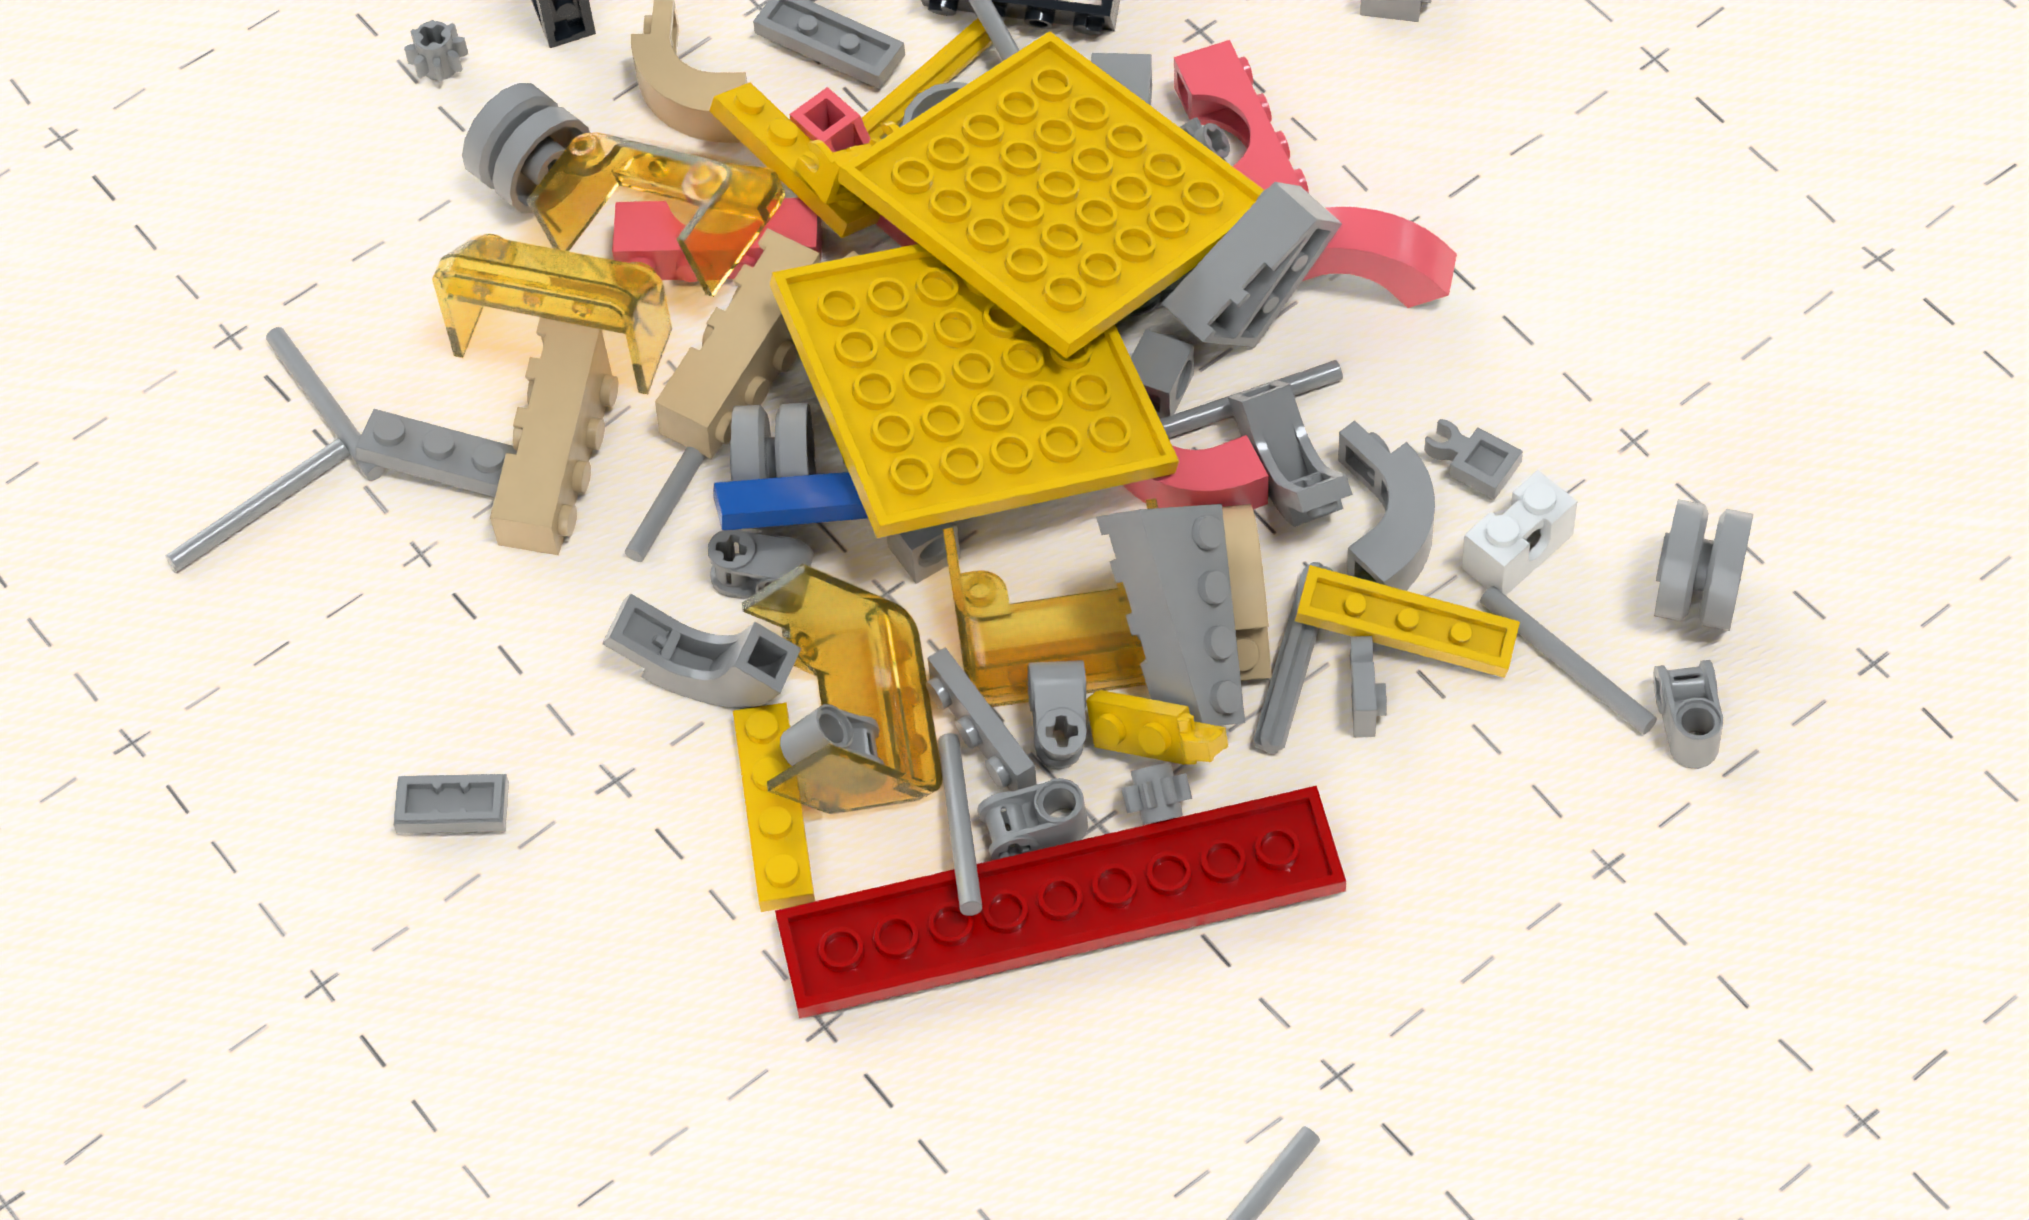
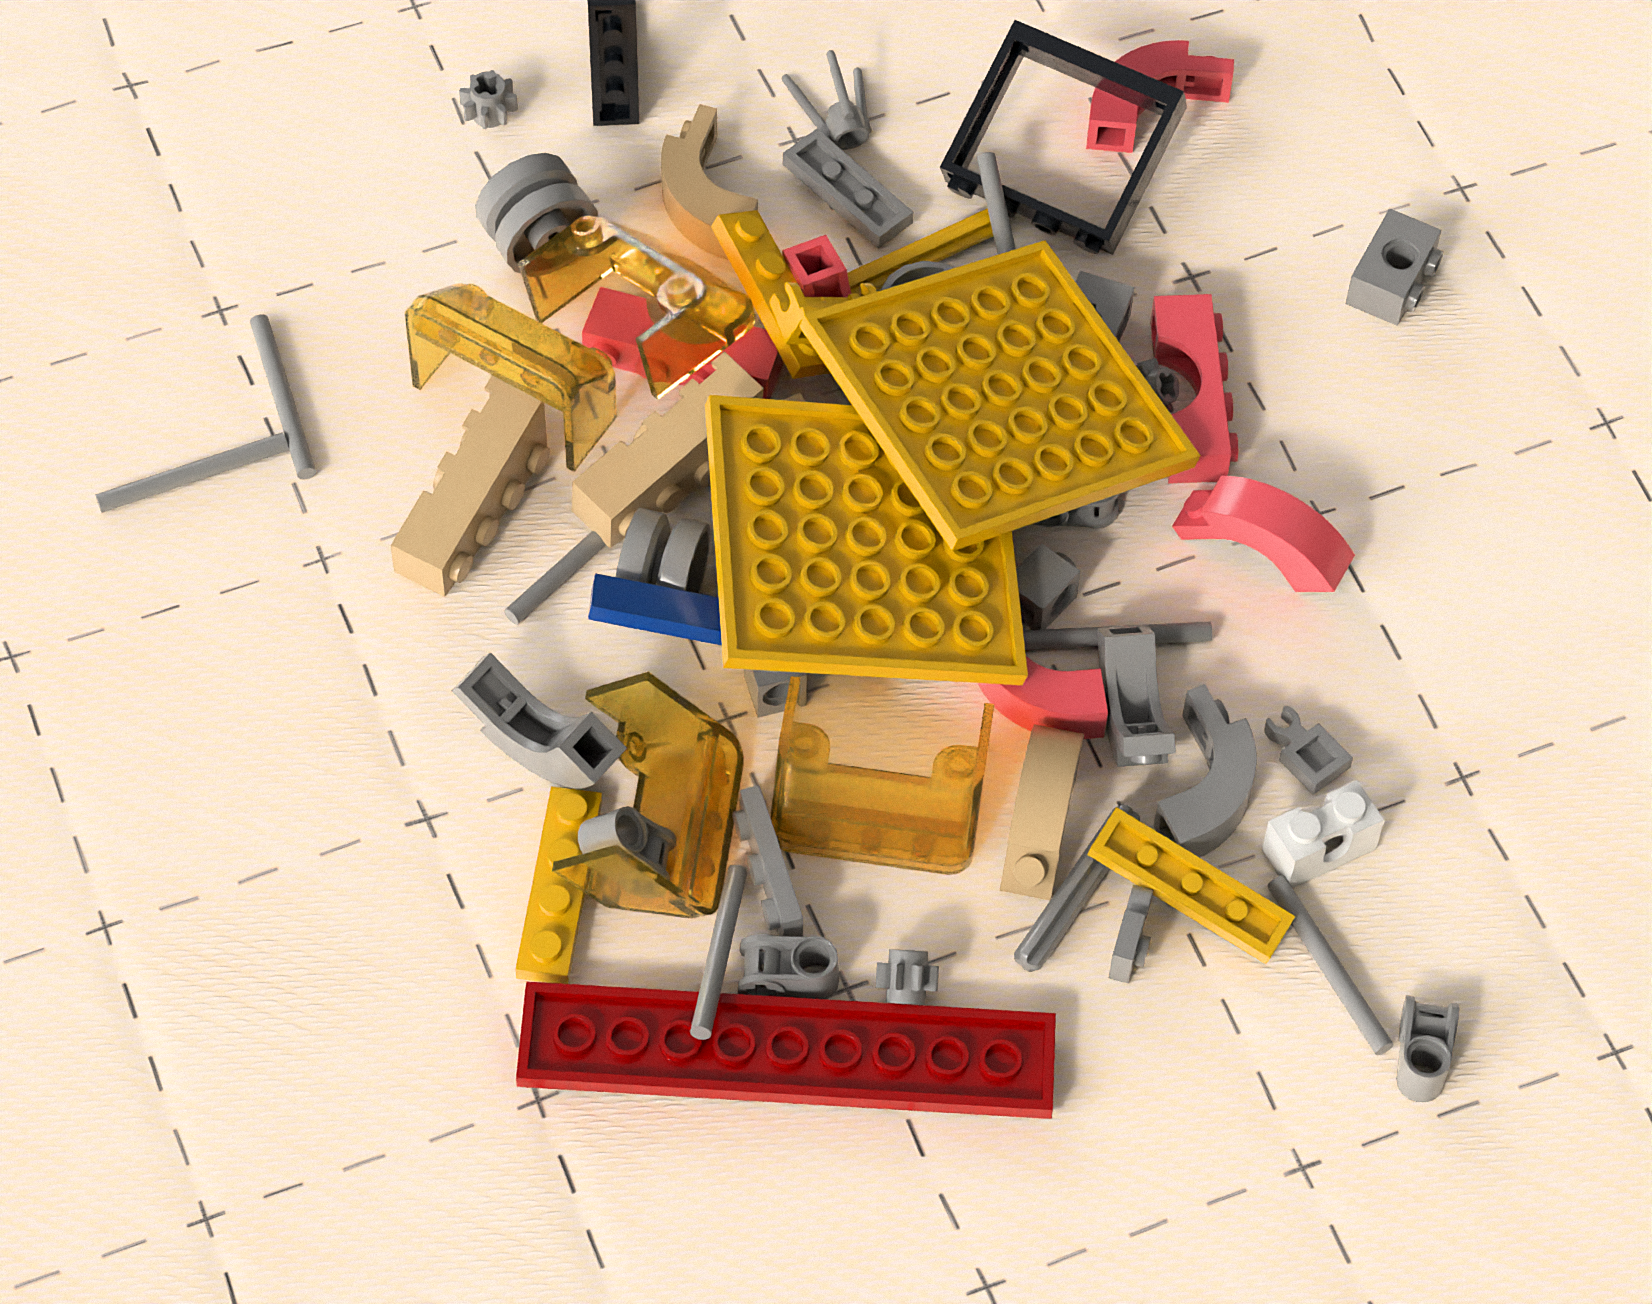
camera: 10 degrees right, 0 degrees up
(432, 452) = (360, 468): light grey plate -> none
(451, 803) = (272, 796): light grey plate -> none
(757, 564) = (617, 657): light grey piece -> none
(1058, 703) = (844, 867): light grey piece -> none
(1152, 729) = (921, 916): yellow hinge -> none
(1180, 606) = (980, 816): light grey wedge -> none
(1254, 268) = (1157, 515): light grey wedge -> none
(1702, 564) = (1475, 911): light grey wheel -> none

